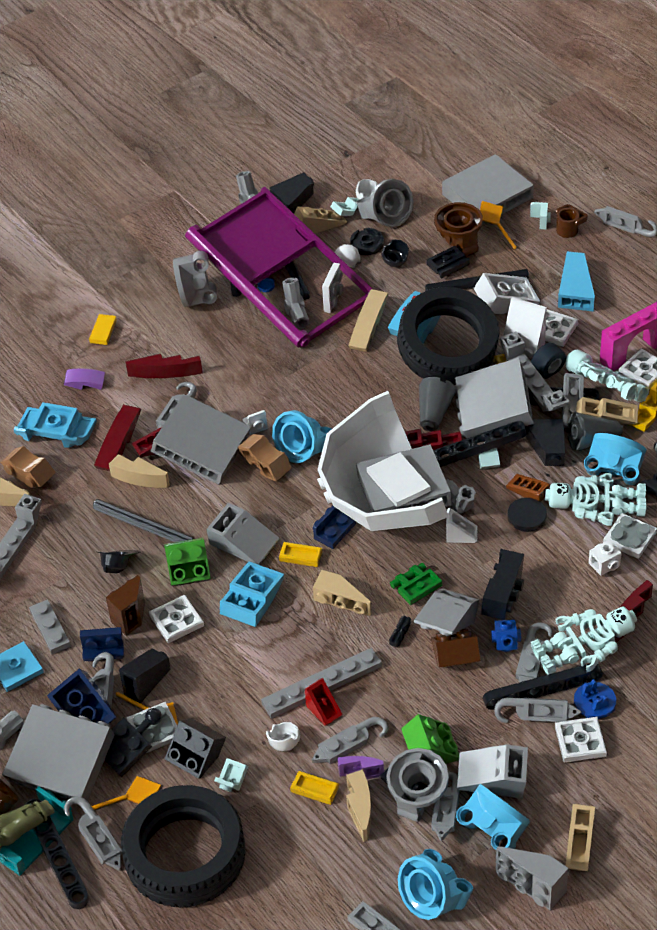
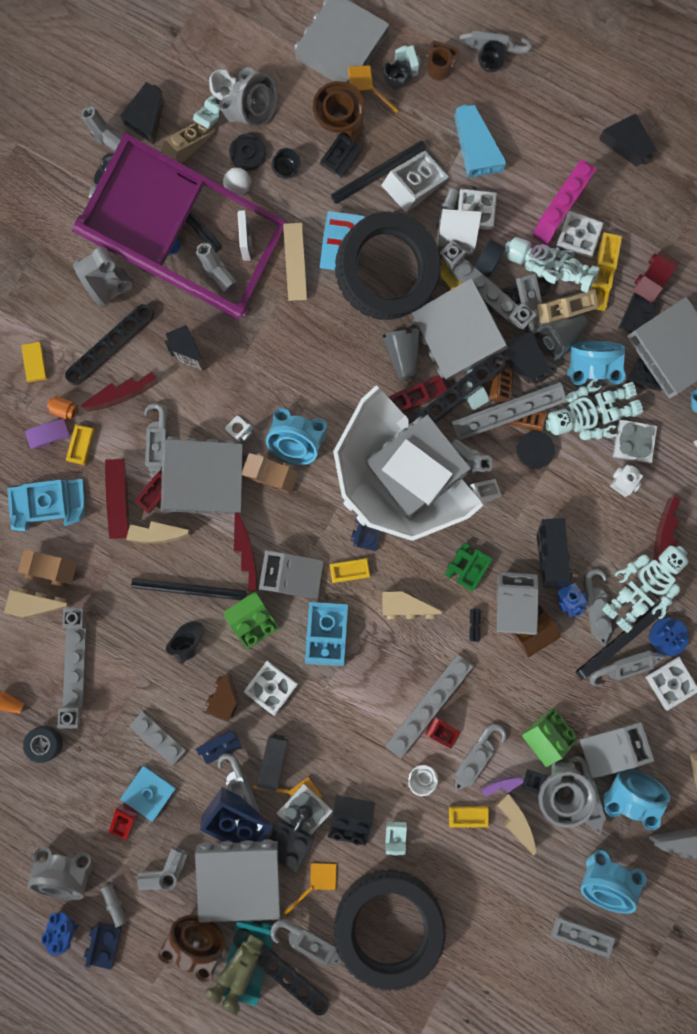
camera: 30 degrees left, 35 degrees up
(108, 363) = (62, 408): none -> orange brick
(108, 395) = (80, 444): none -> yellow tile
(175, 336) = (112, 347): none -> black beam
(210, 506) = (243, 545): none -> dark red slope
(237, 347) = (181, 344): none -> black slope
(511, 465) = (496, 386): none -> dark orange slope
(512, 471) = (509, 411): none -> light grey plate
(525, 222) = (397, 74): none -> black hair
(617, 228) = (491, 56): none -> black hair

